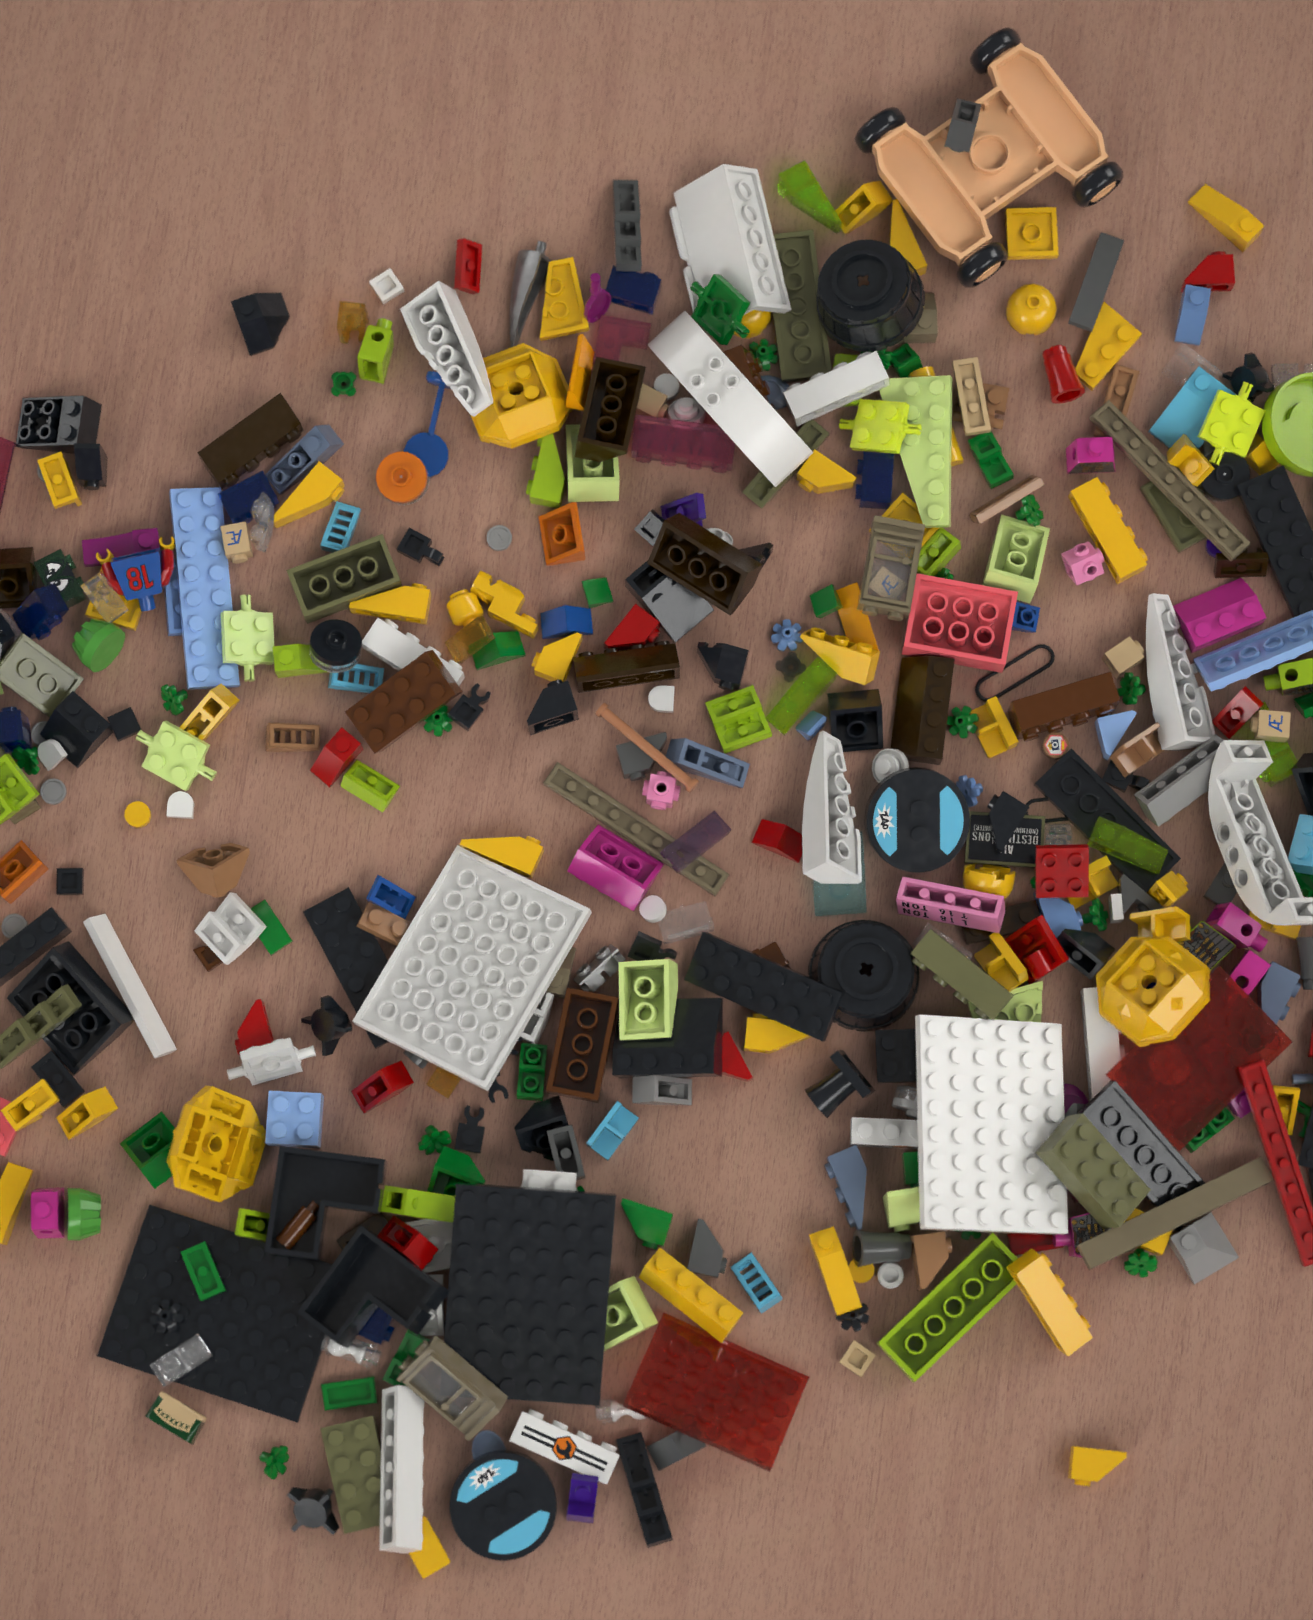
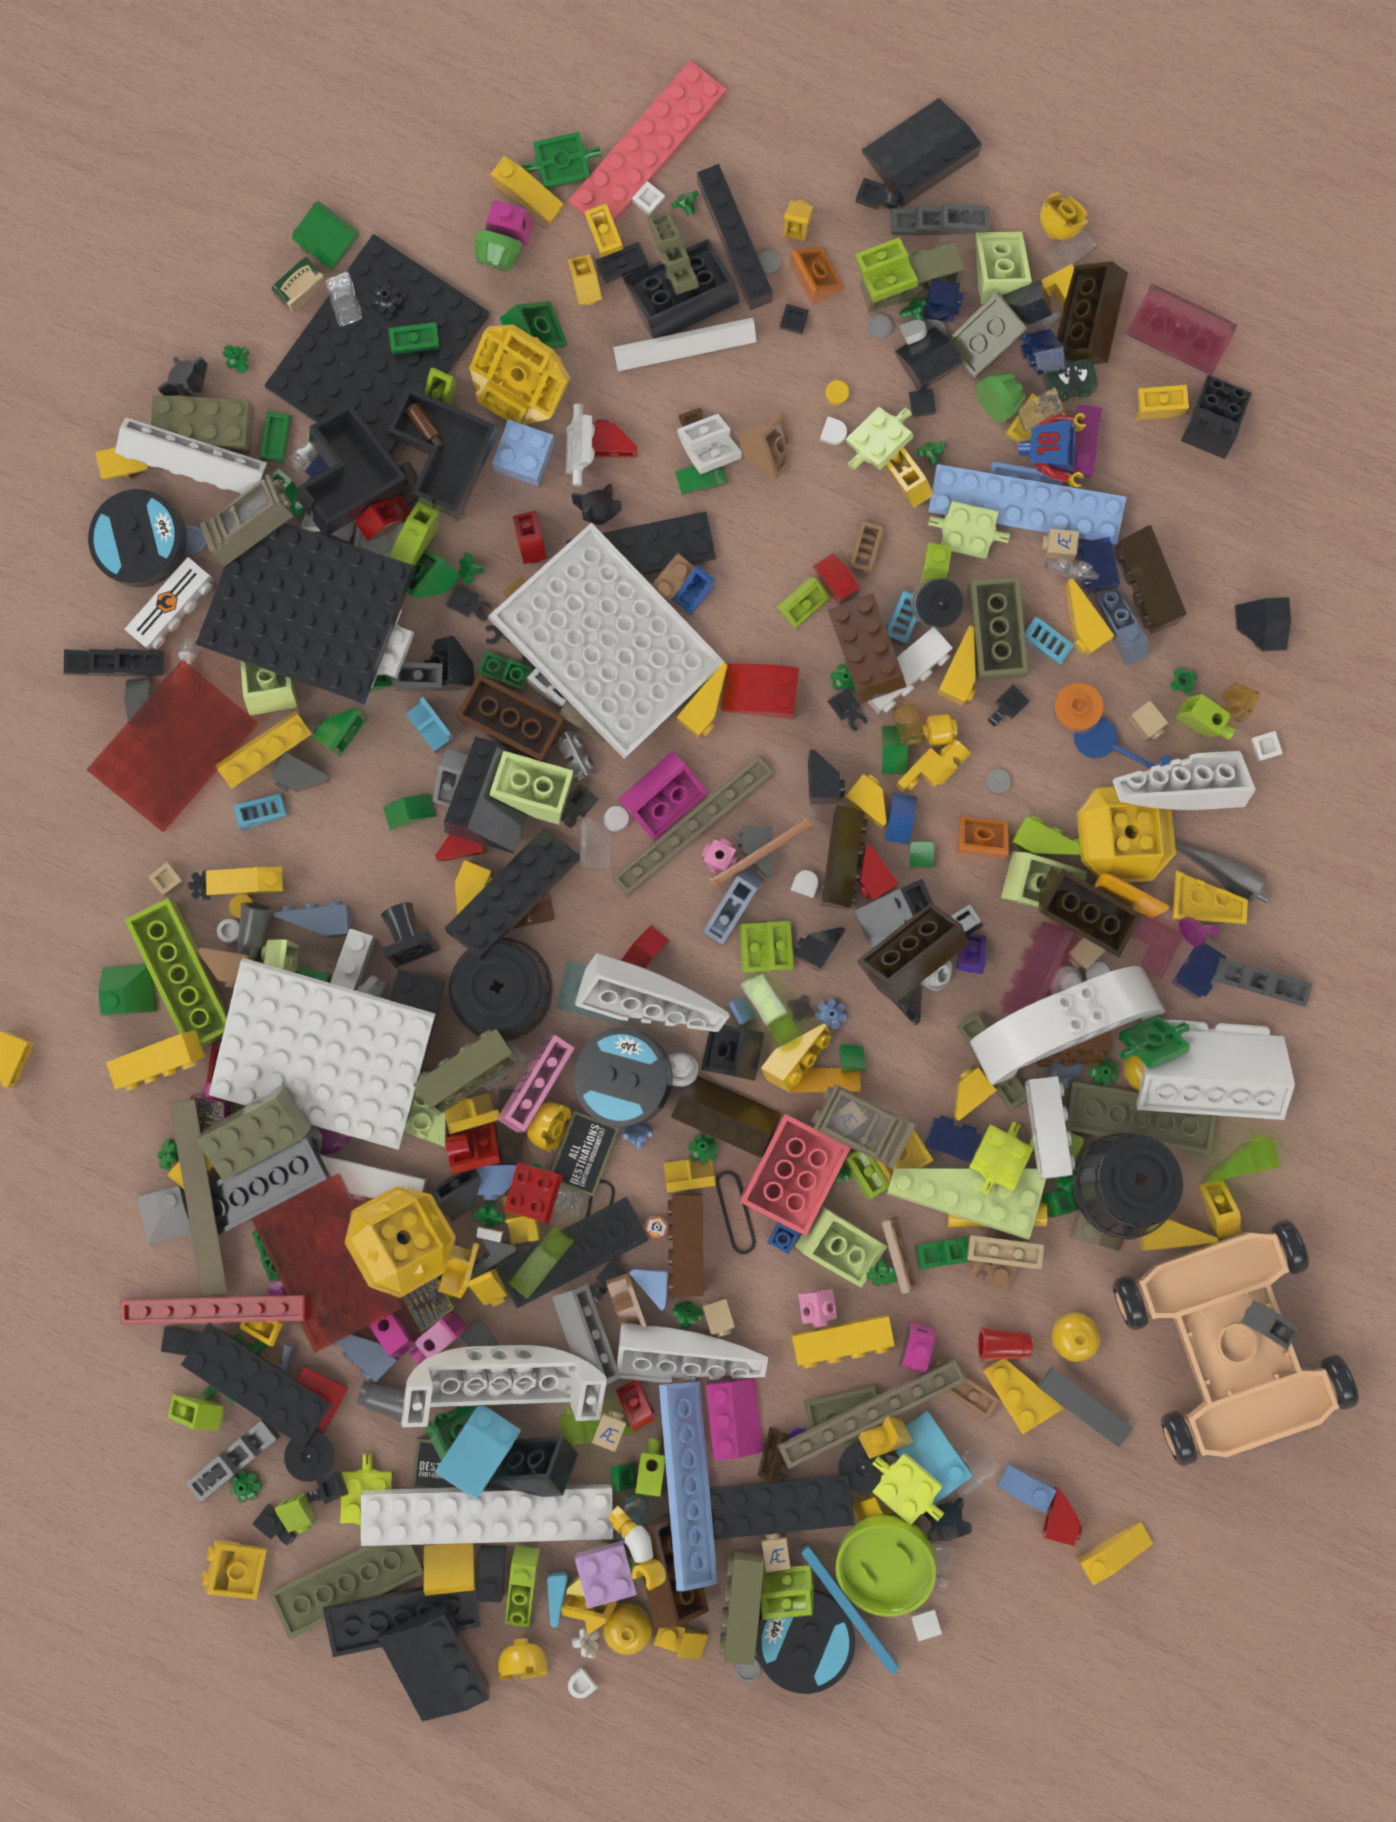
camera: 110 degrees right, 5 degrees up
(90, 465) = (1168, 432): black slope -> none
(113, 1407) = (324, 235): none -> green slope
(396, 406) = (1148, 721): none -> tan brick
(468, 266) = (1264, 825): red plate -> none
(475, 799) = (760, 690): none -> red slope
(582, 1498) = (119, 605): dark purple slope -> none
(696, 841) = (664, 874): clear purple plate -> none
(709, 1125) = (409, 811): none -> green slope
(985, 1362) = (126, 990): none -> green slope
(1004, 818) = (600, 1158): black slope -> none
(1031, 233) = (1150, 1361): yellow plate -> none

